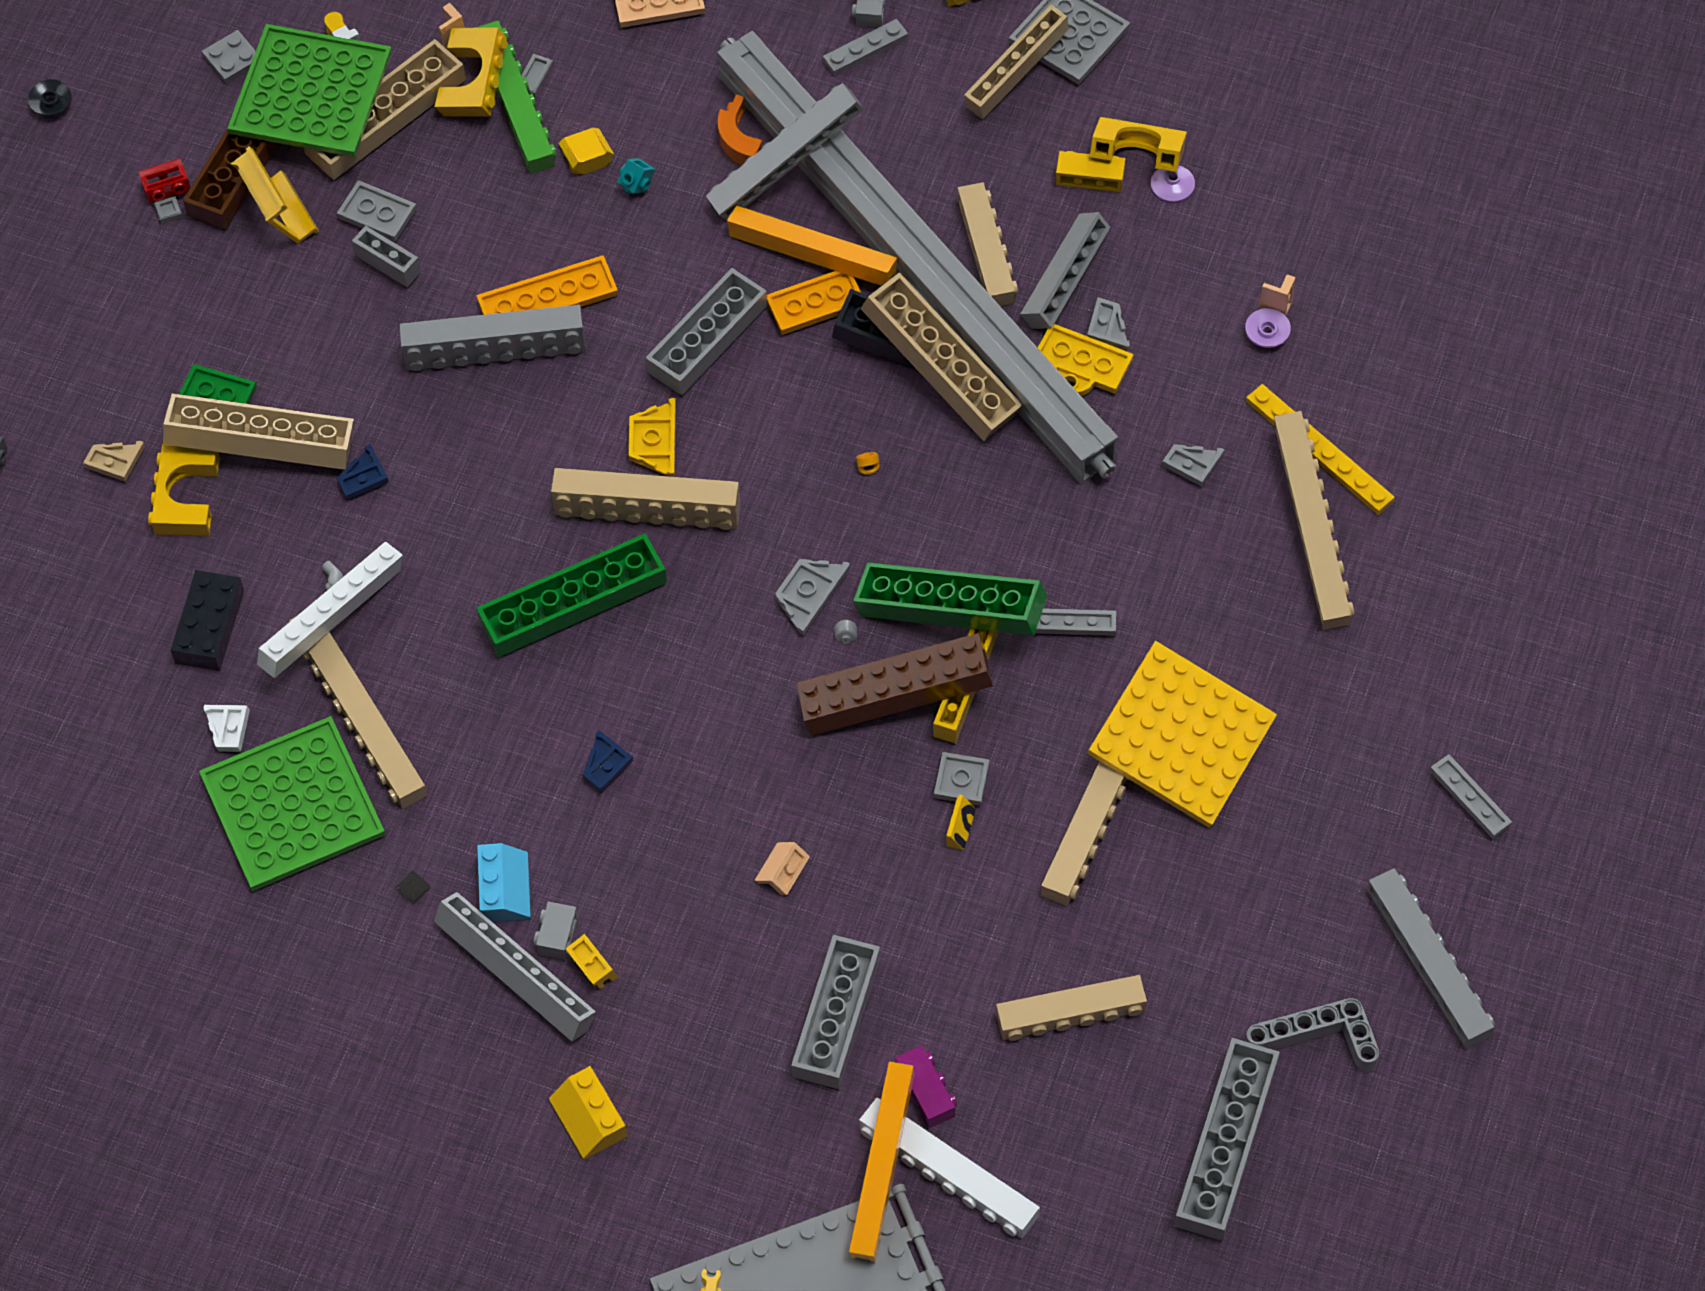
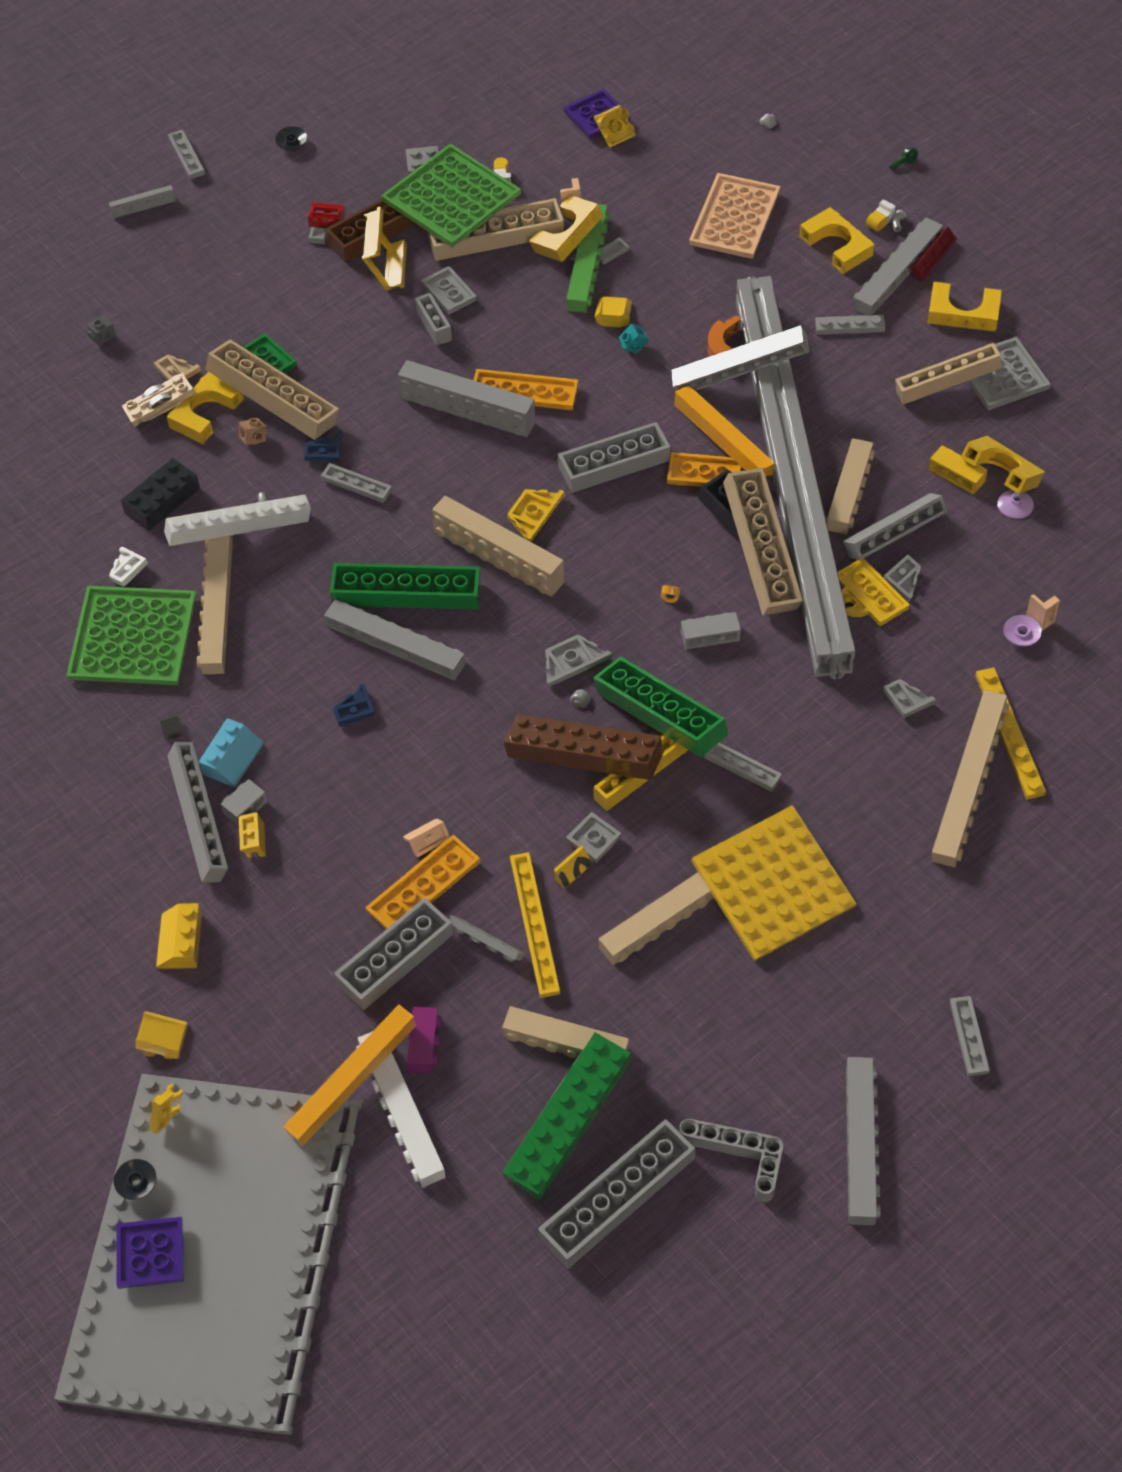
camera: 30 degrees right, 5 degrees down
(124, 507) = (158, 399): none -> tan piece
(265, 493) = (252, 431): none -> medium nougat brick
(428, 498) = (356, 483): none -> light grey plate
(598, 663) = (395, 639): none -> light grey brick
(643, 1228) = (161, 1035): none -> yellow slope
(813, 921) = (425, 880): none -> light orange plate
(930, 947) = (493, 943): none -> light grey plate
(939, 485) = (710, 630): none -> light grey brick
(960, 904) = (534, 925): none -> yellow plate
(1130, 1087) = (567, 1116): none -> green brick

